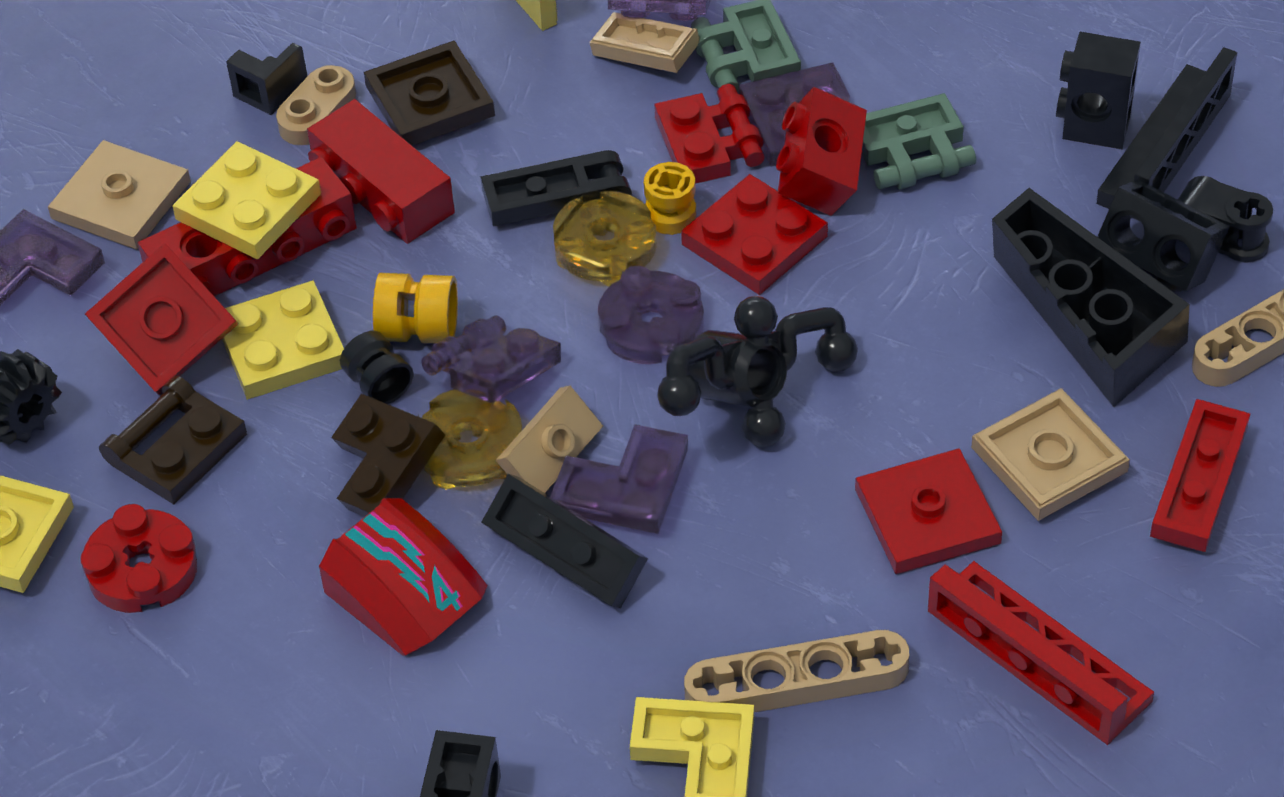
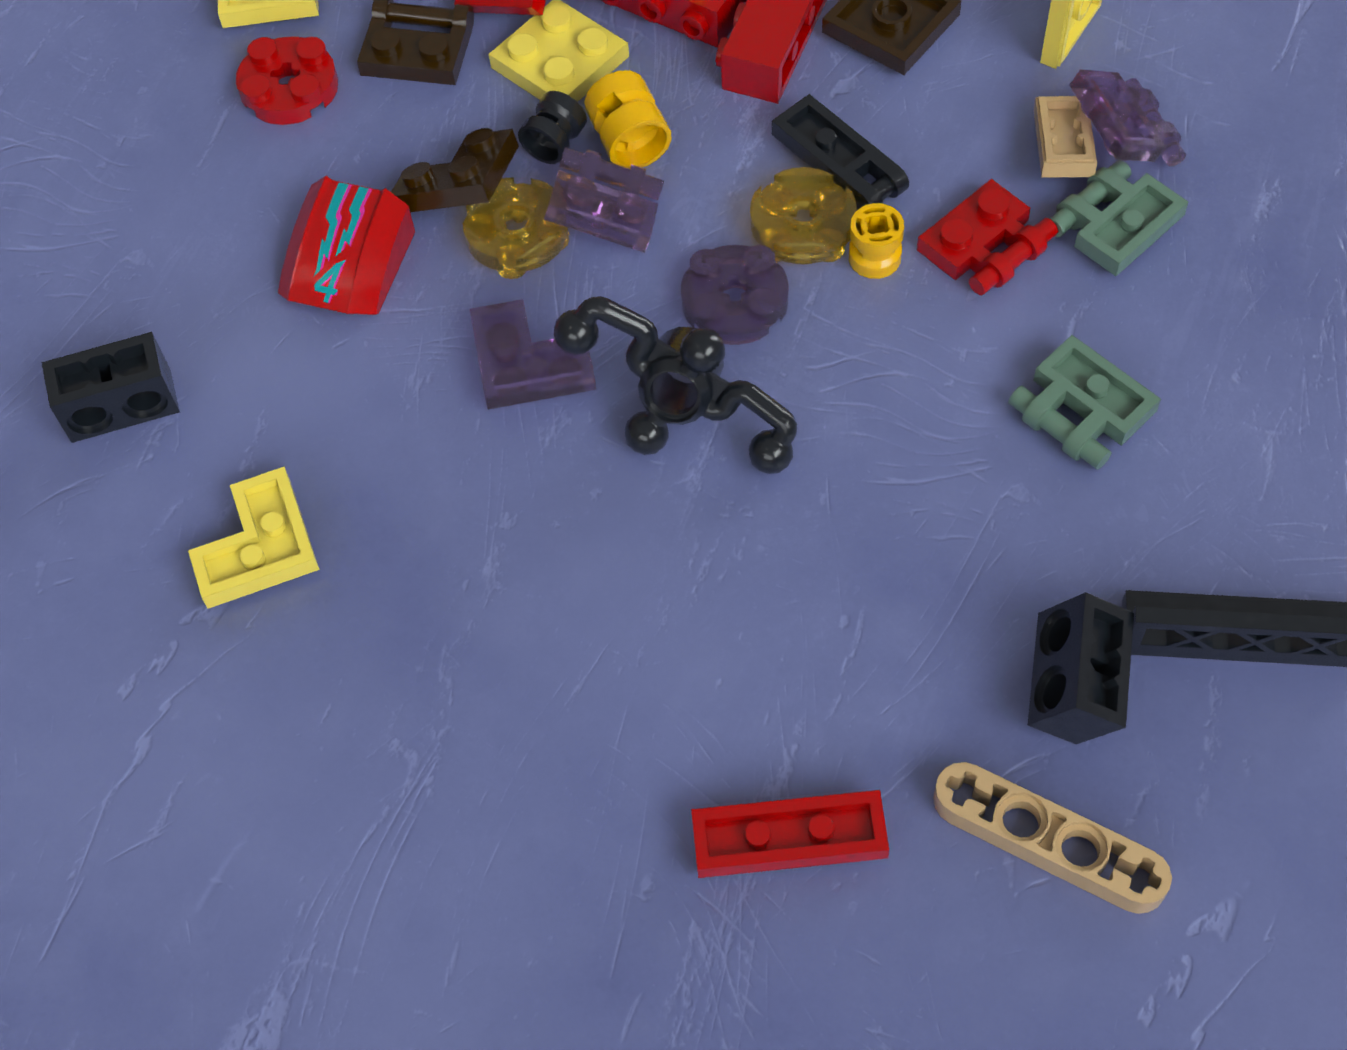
camera: 65 degrees right, 10 degrees up
(556, 431) = (540, 280): tan plate -> none
(564, 540) = (433, 342): black plate -> none
(754, 234) = (885, 328): red plate -> none
(772, 97) = (1068, 277): clear purple plate -> none
(794, 665) = (383, 579): tan beam -> none
(821, 151) = (1034, 318): red brick -> none
(928, 511) = (623, 610): red plate -> none
(1033, 658) = (475, 764): red fence -> none
(1050, 454) = (742, 685): tan plate -> none
(1091, 296) = (949, 645): black wedge -> none
(1099, 89) = (1246, 528): black brick -> none
(1234, 209) = (1158, 725): black piece -> none

